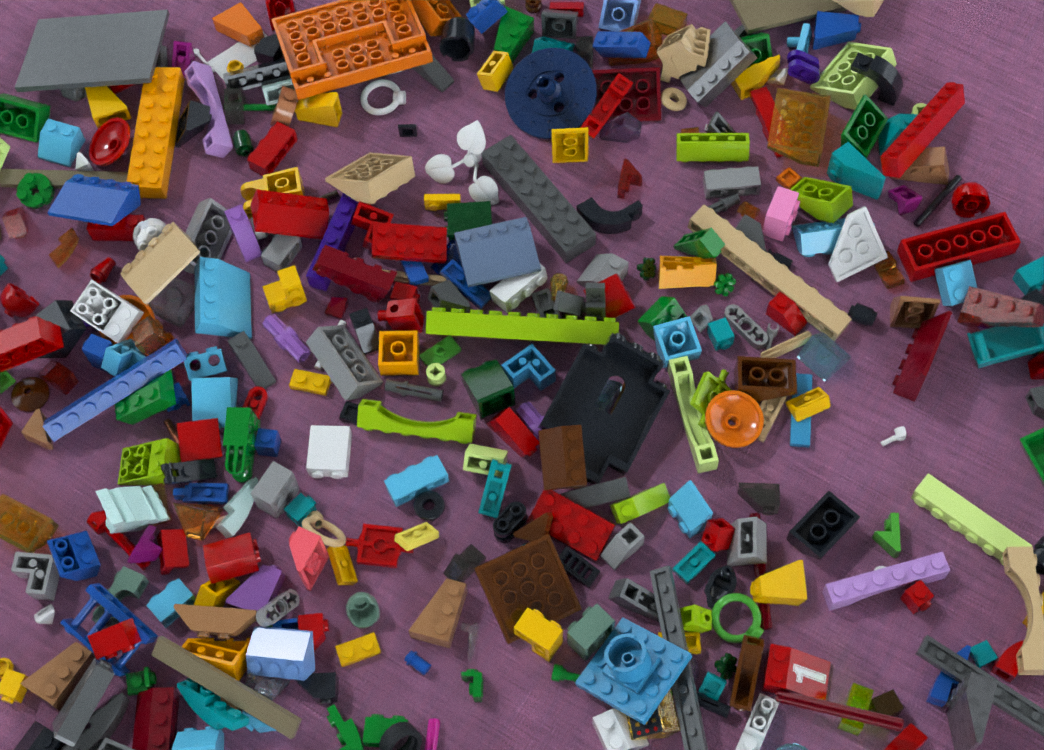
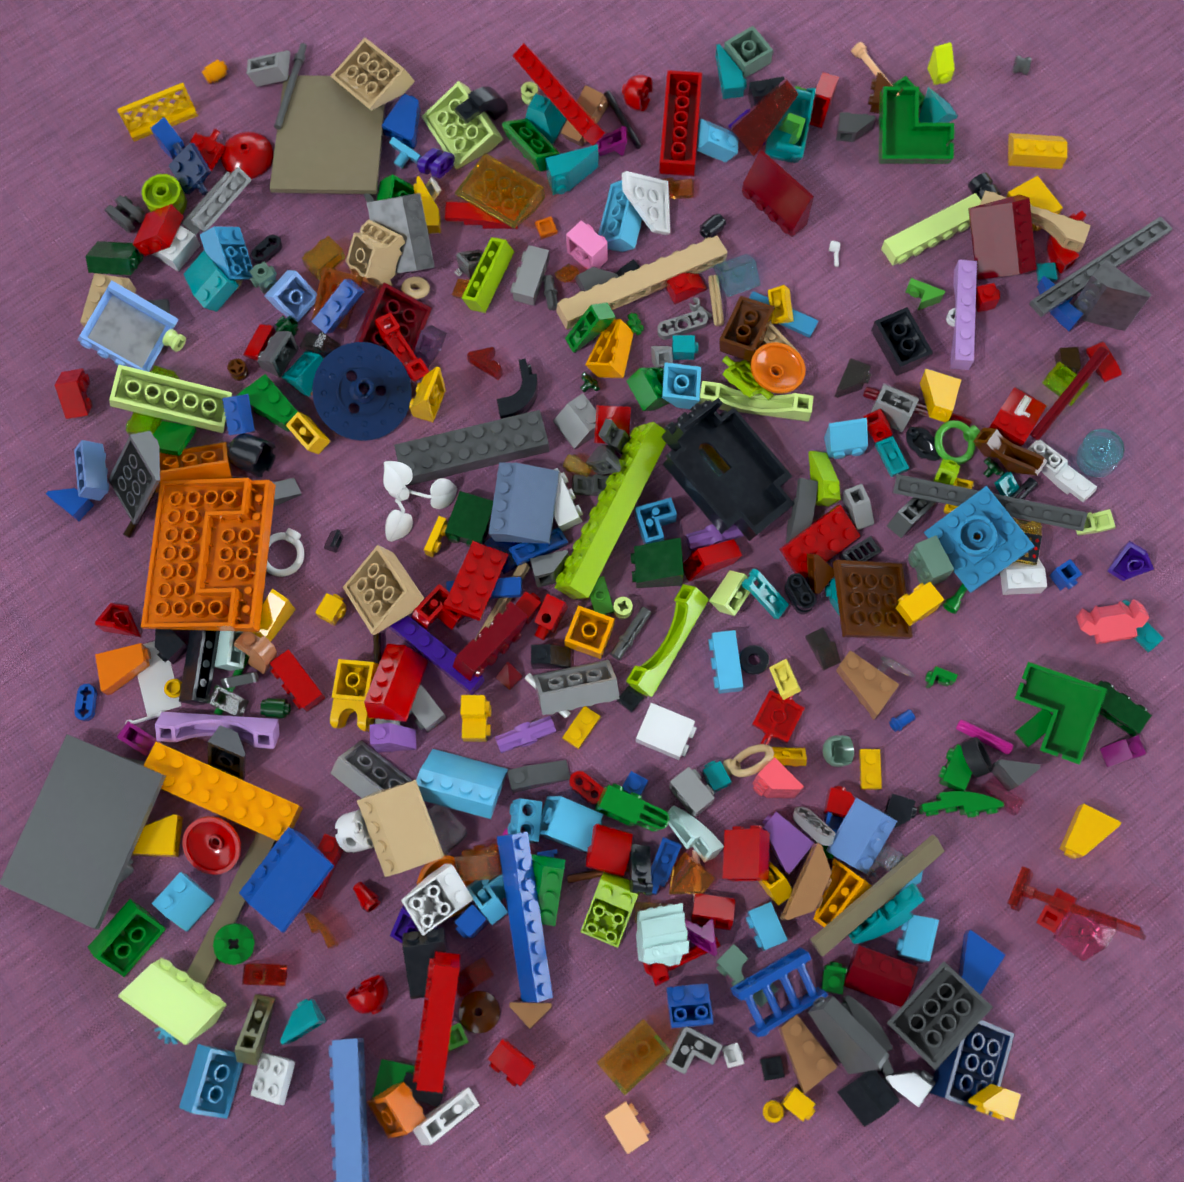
camera: 70 degrees left, 10 degrees up
(42, 654) = (772, 1068): none -> black tile
(82, 163) = (223, 882): white slope -> none
(114, 638) = (798, 985): red brick -> none
(202, 16) = (90, 703): none -> blue beam
(257, 108) = (239, 680): none -> dark grey beam
(344, 149) = (331, 609): none -> yellow brick
(562, 457) = (768, 520): reddish brown slope -> none
(588, 19) = (287, 324): none -> dark green gear
(823, 198) = (584, 204): lime slope -> none
(911, 311) = (729, 184): medium nougat slope -> none
(988, 584) = (1002, 237): none -> slope
(1005, 345) = (793, 125): none -> bright green panel

